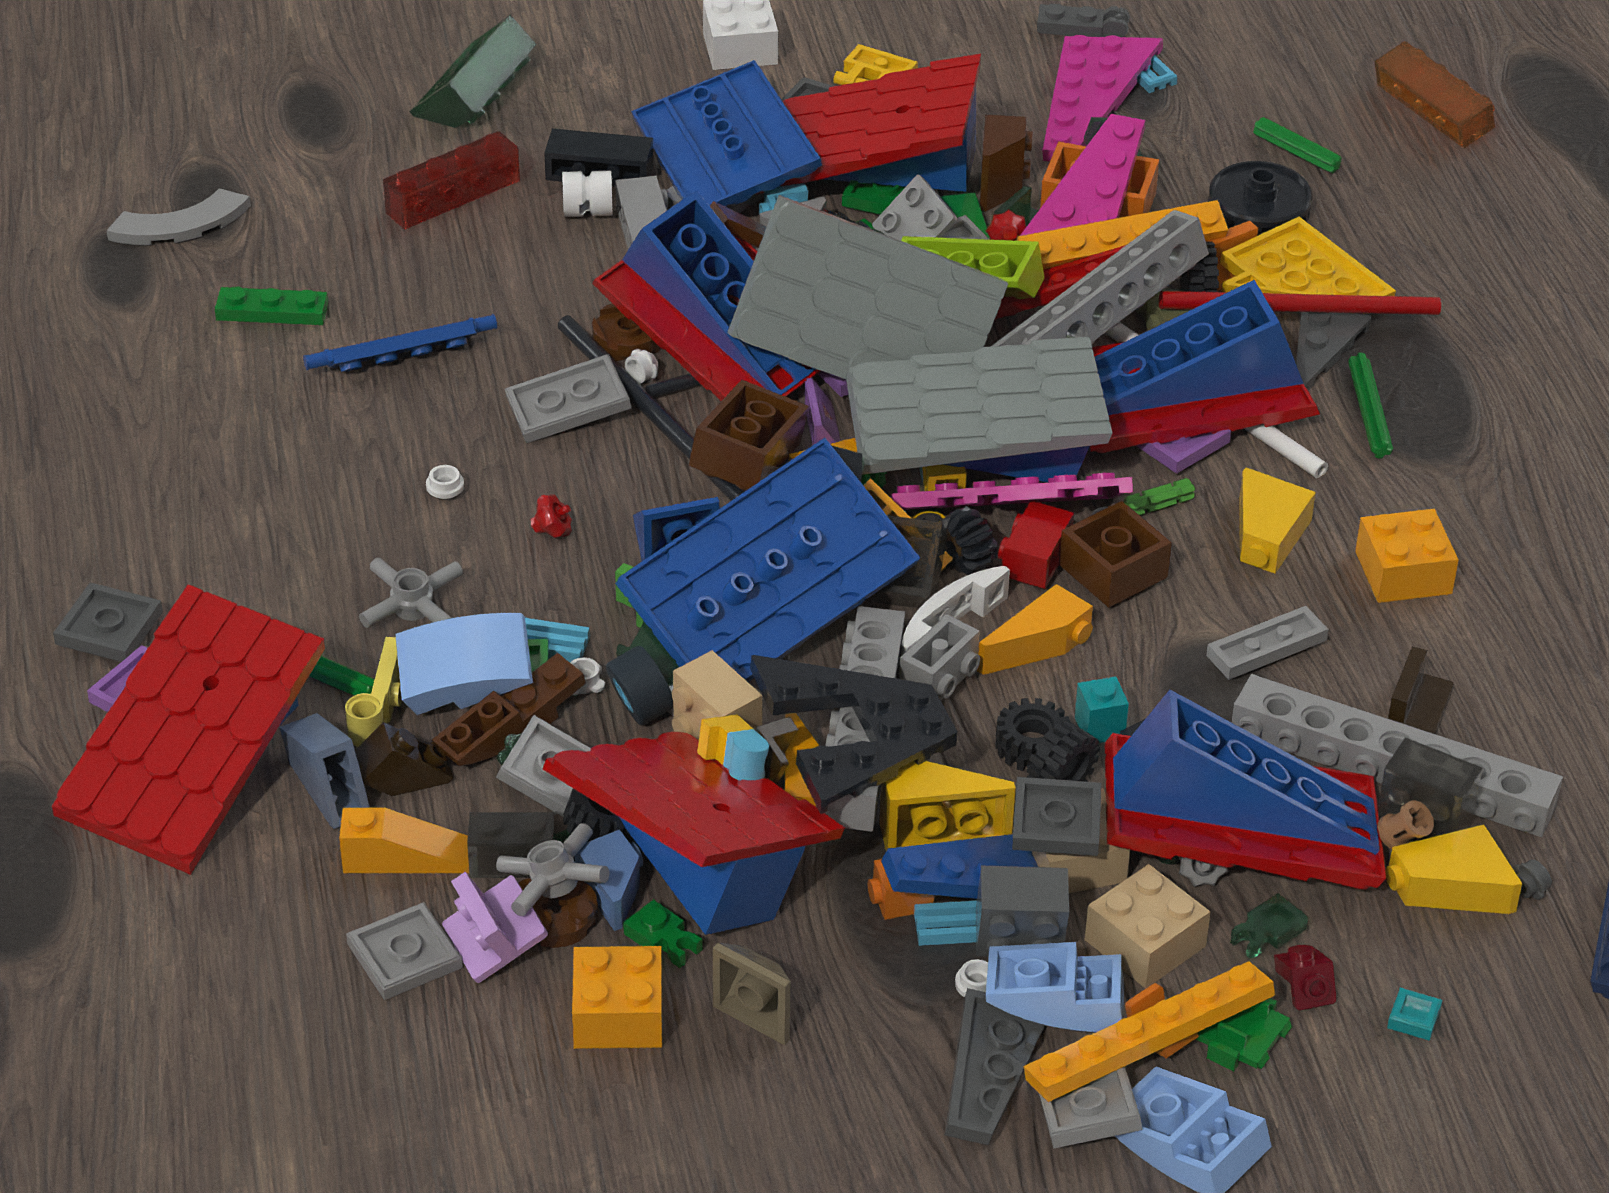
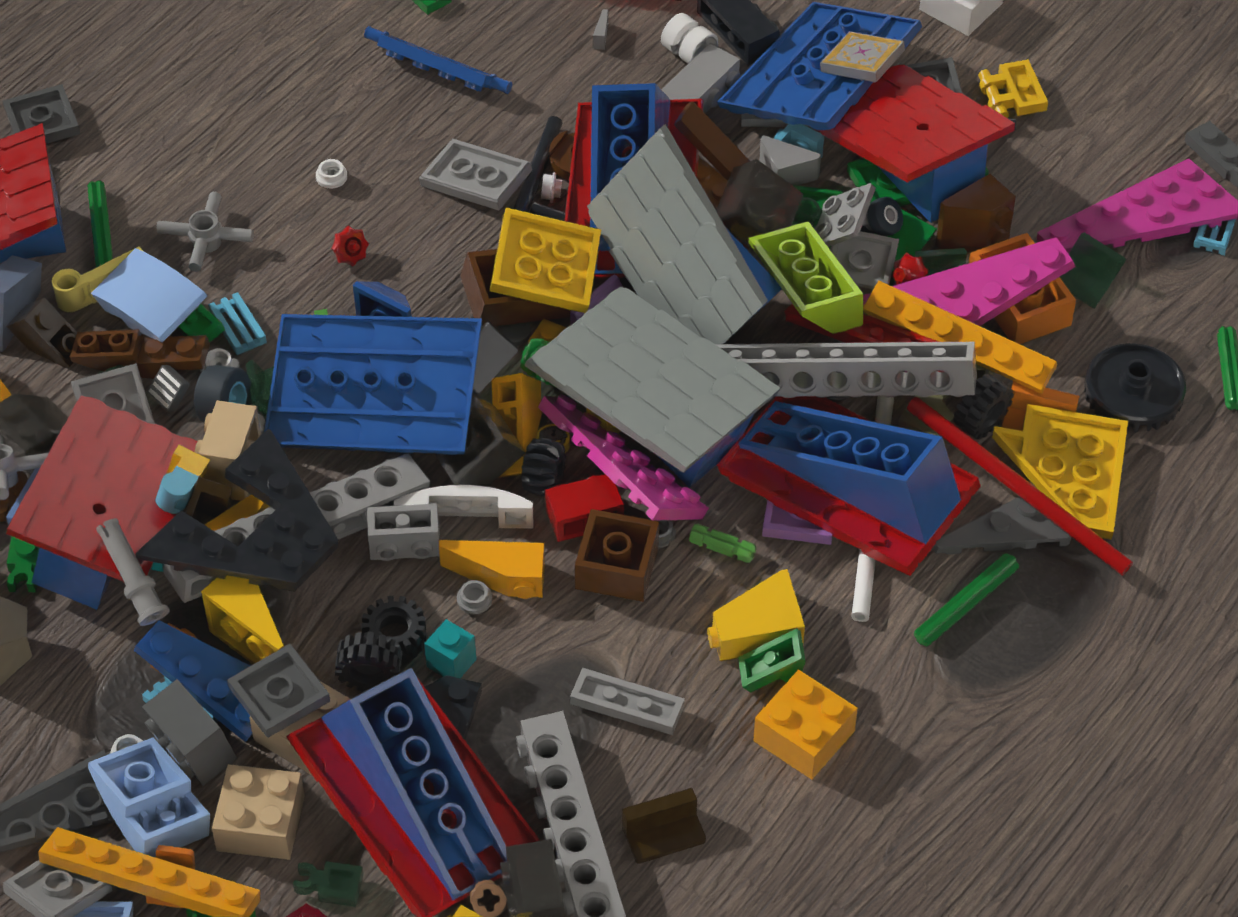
camera: 50 degrees right, 10 degrees up
(497, 236) = (600, 32): none -> light grey piece
(576, 719) = (168, 388): none -> dark grey tile
(763, 392) = (545, 260): none -> yellow plate
(764, 104) = (862, 56): none -> light grey tile
(853, 826) = (138, 586): none -> light grey pin
(1050, 668) = (474, 597): none -> light grey plate
(1327, 531) = (772, 661): none -> green slope

